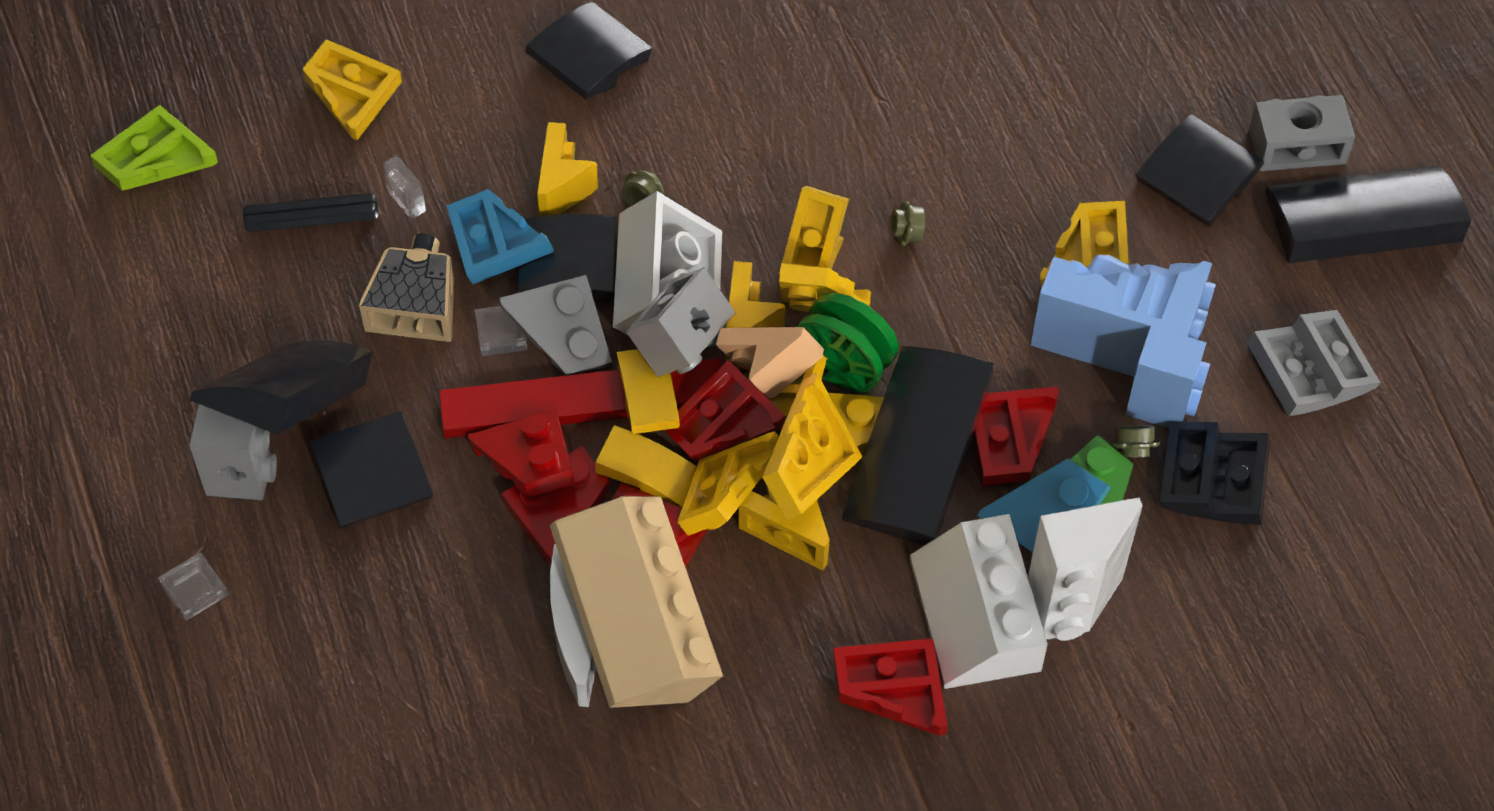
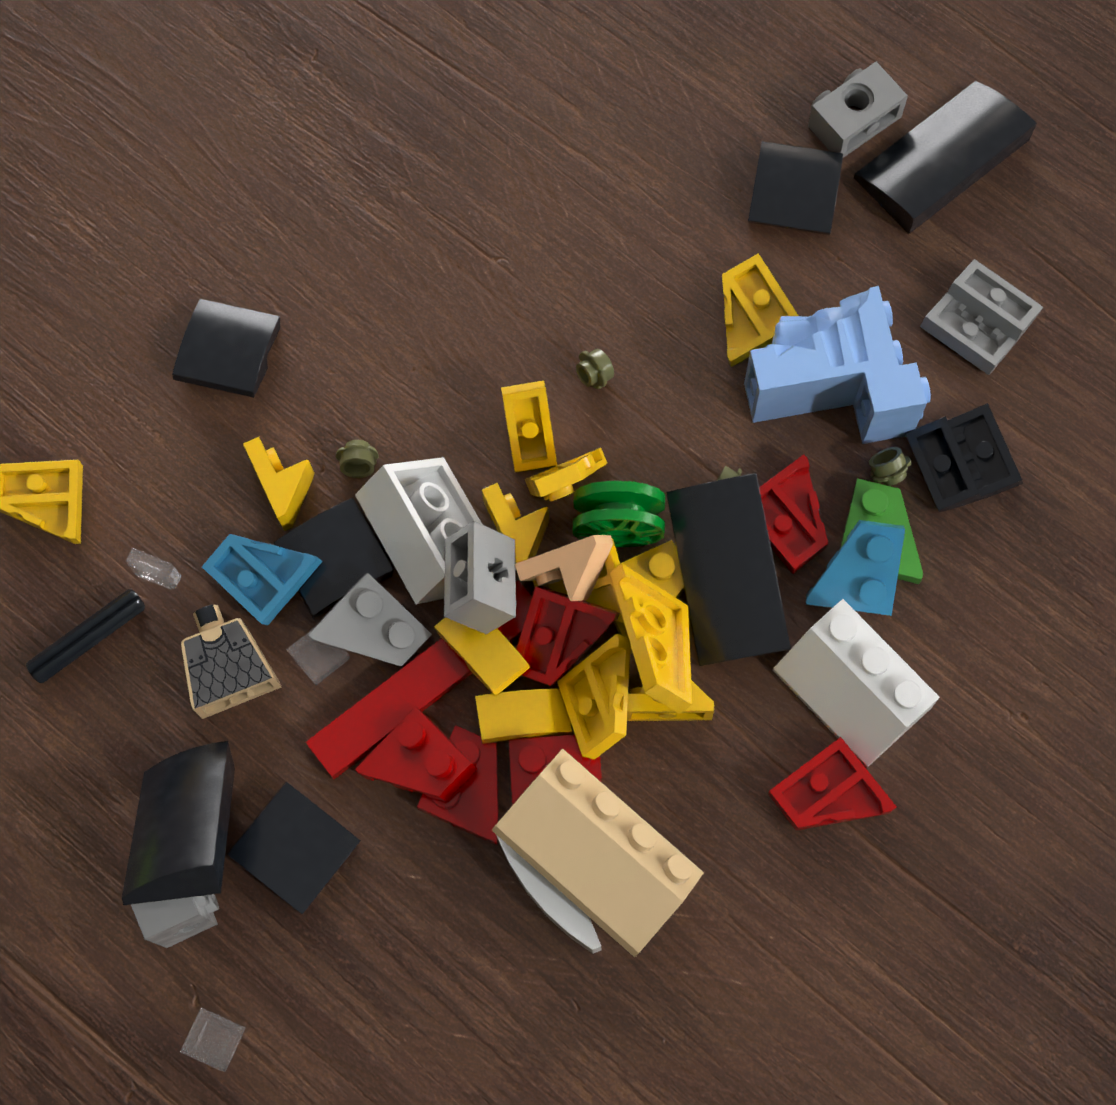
camera: 25 degrees left, 15 degrees up
(1080, 564) = (931, 620): white slope -> none

